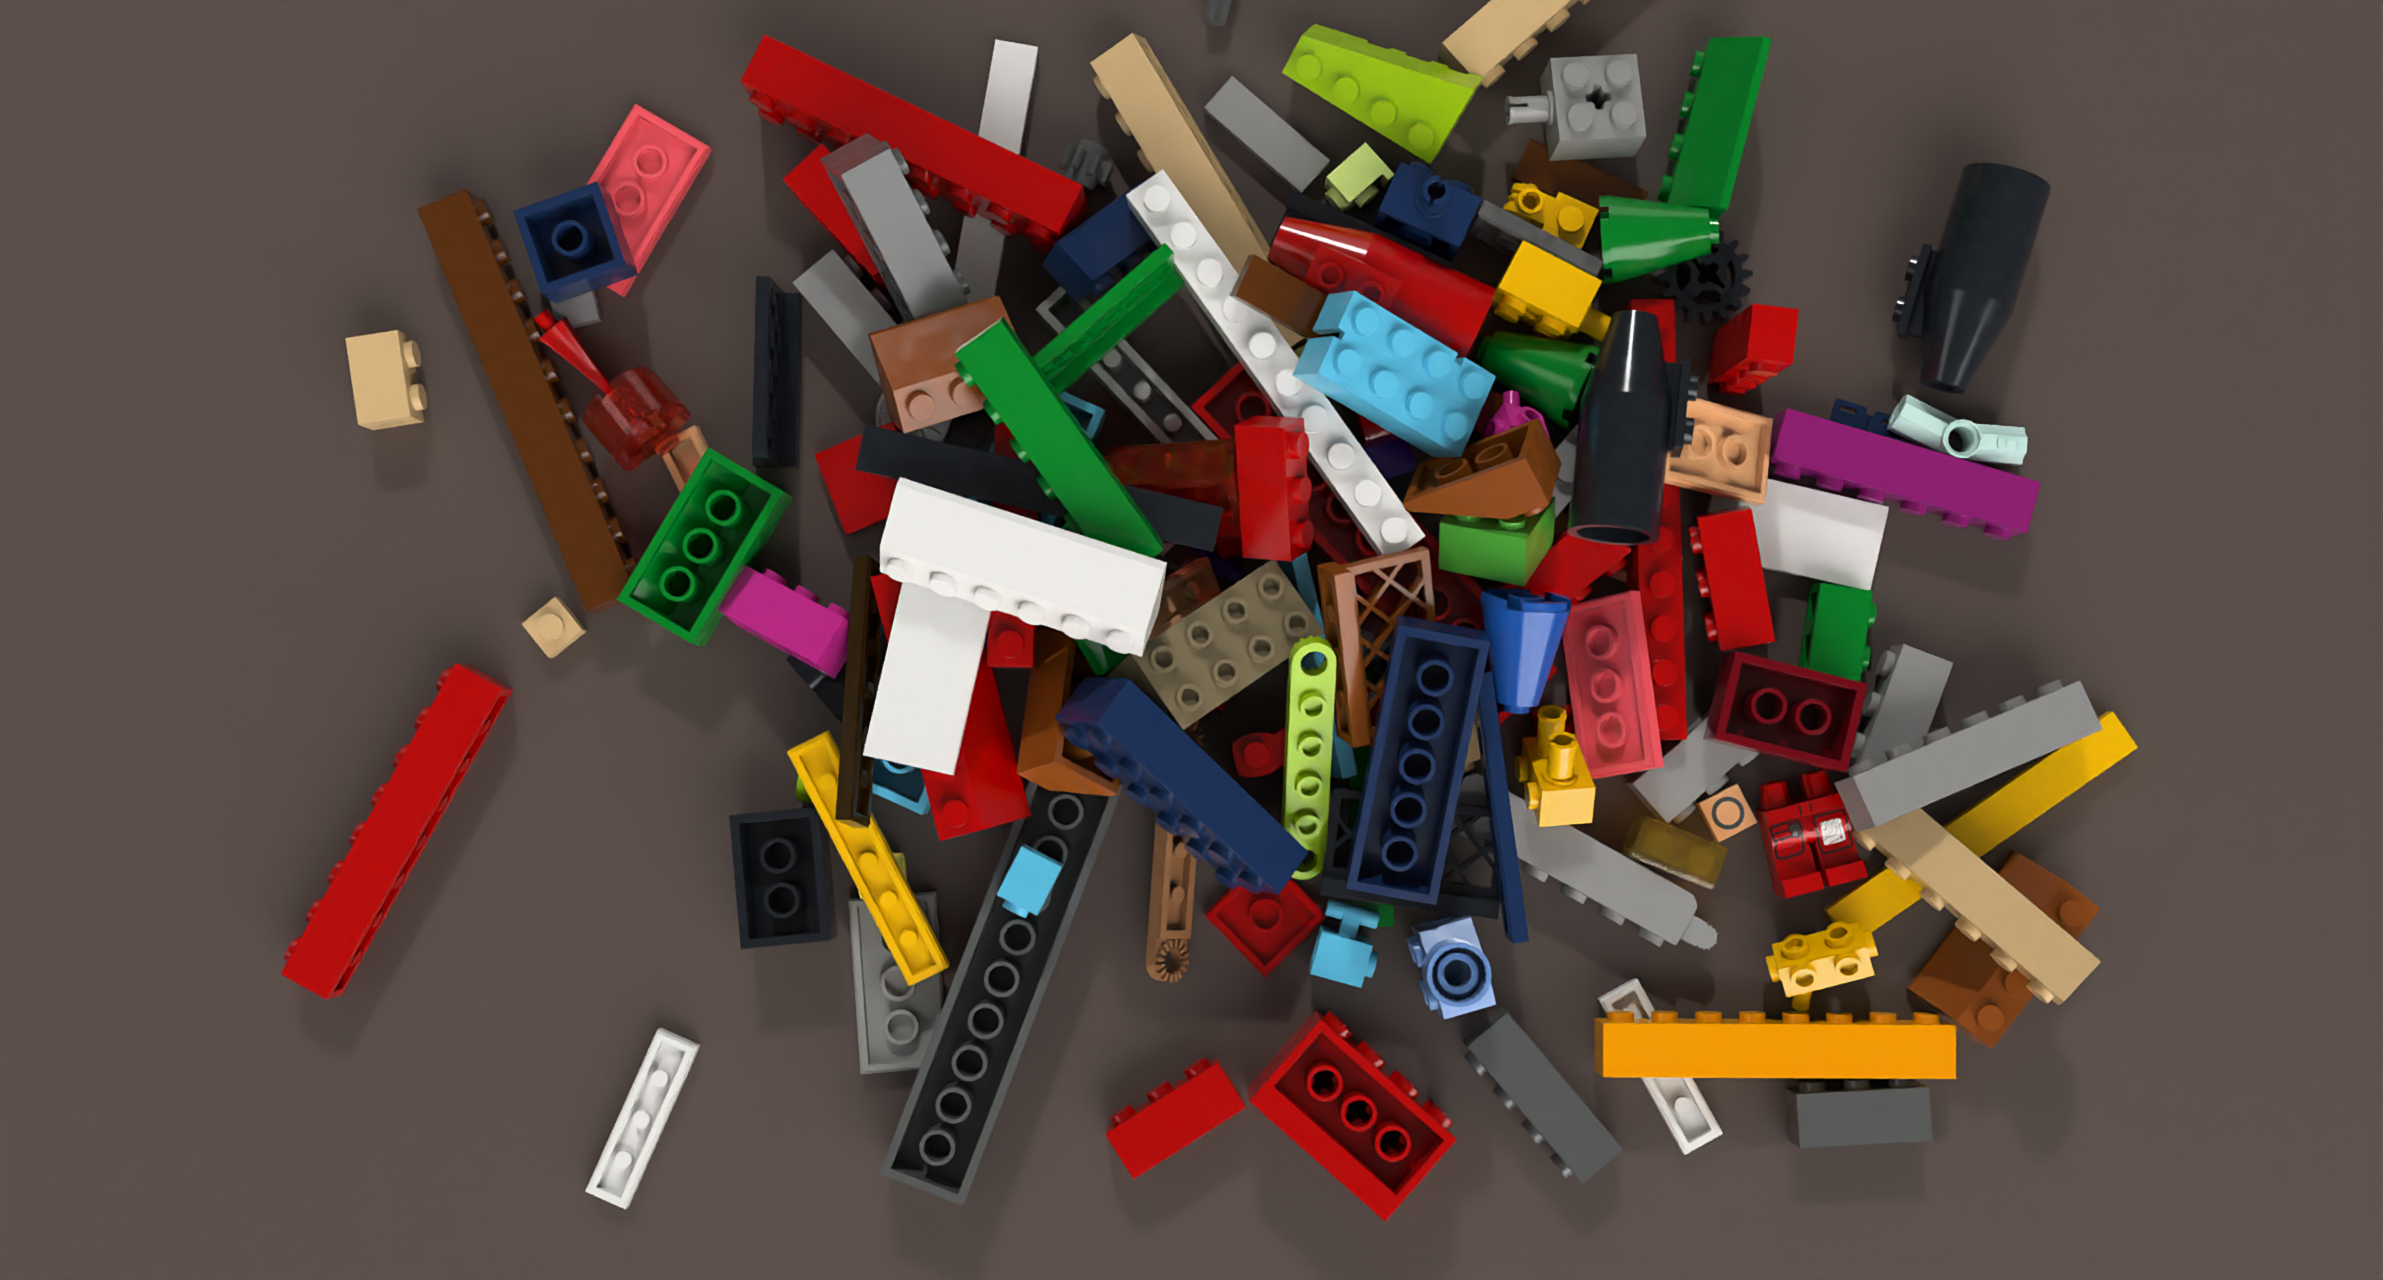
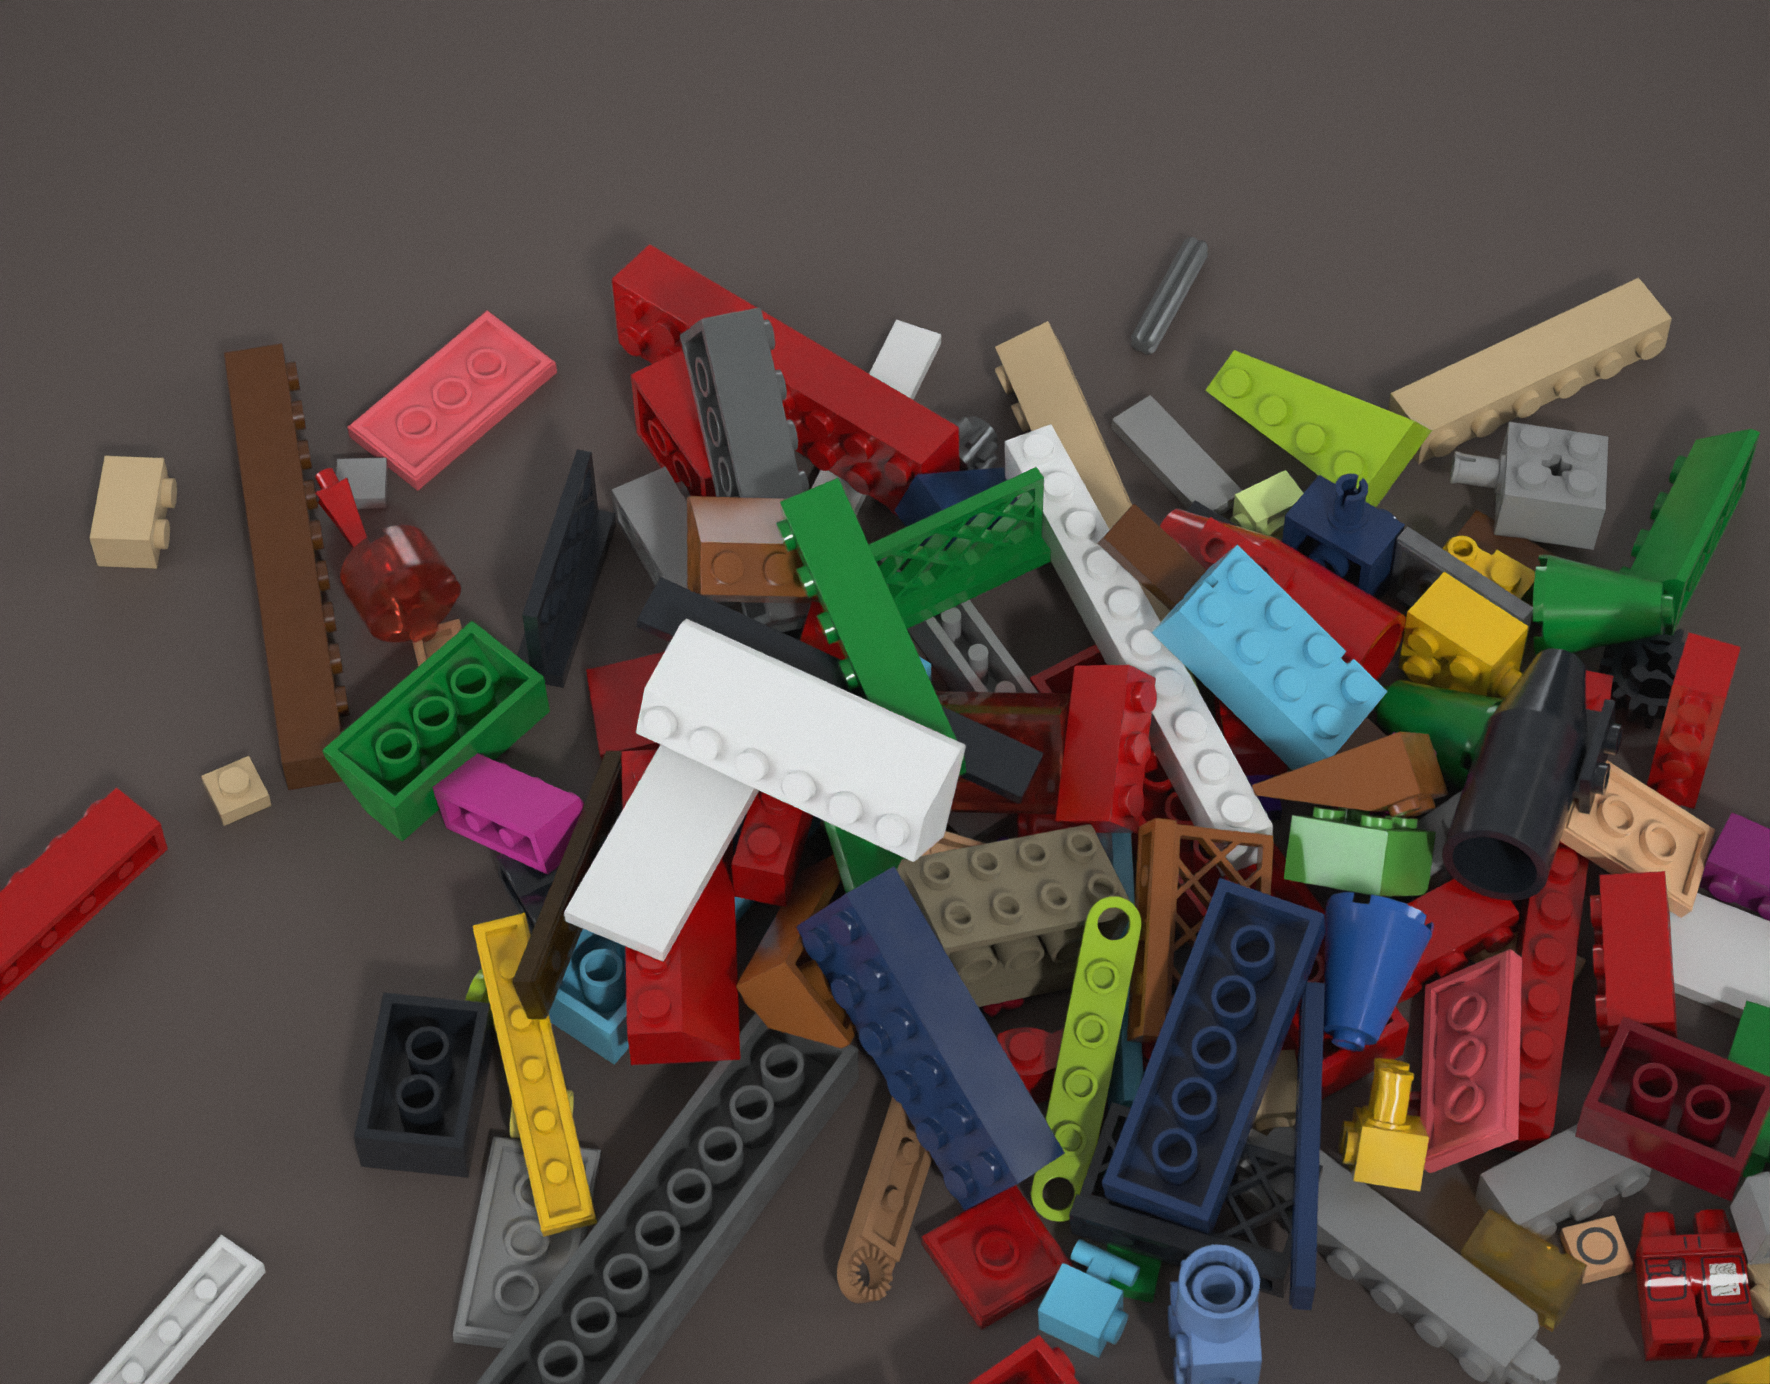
camera: 15 degrees right, 30 degrees down
(575, 242) = (385, 409): dark blue brick -> none
(1029, 881) = (721, 1115): medium azure brick -> none

